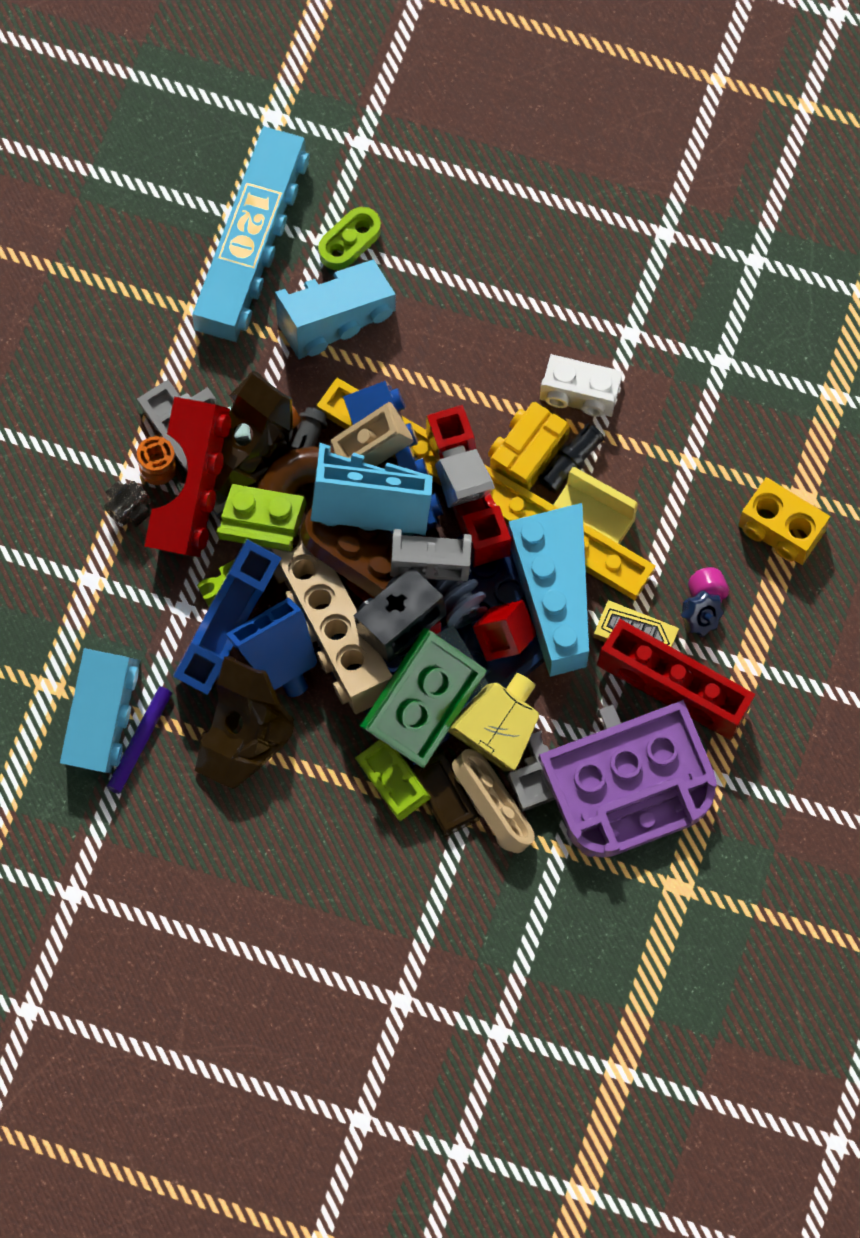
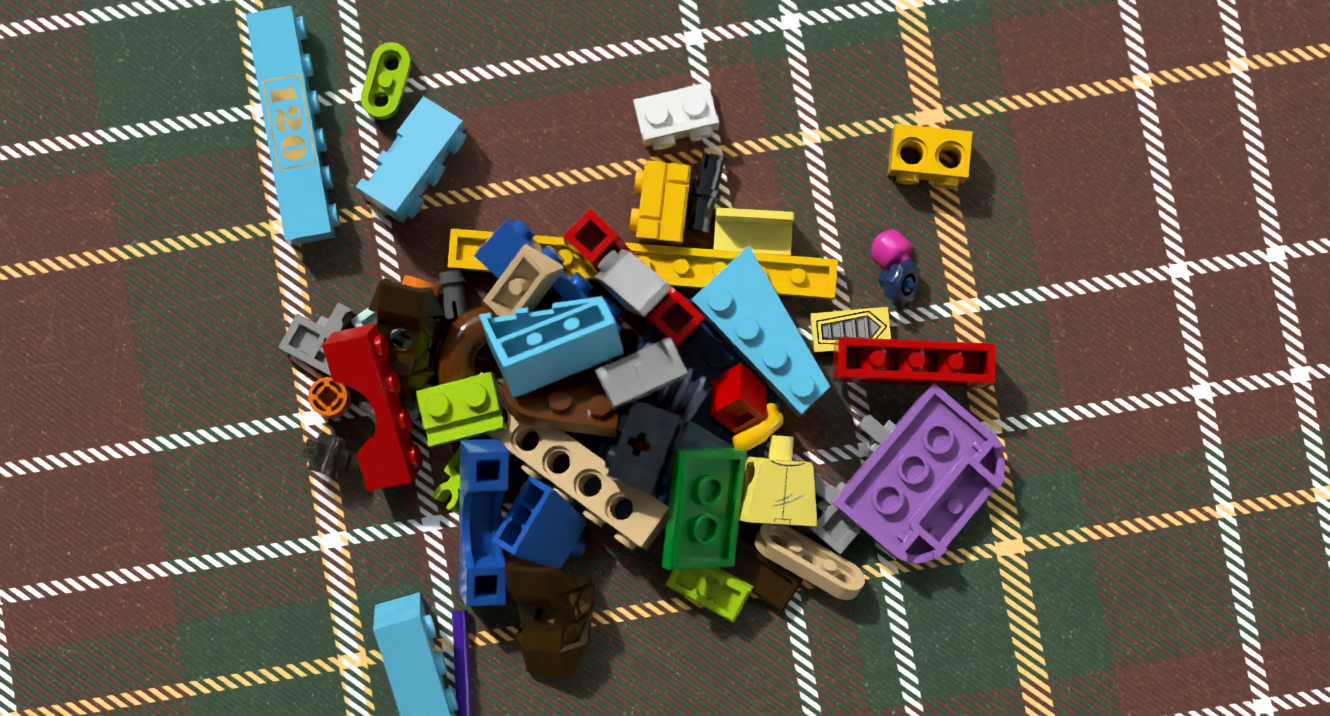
camera: 30 degrees left, 15 degrees up
(508, 666) = (761, 431): none -> yellow arm

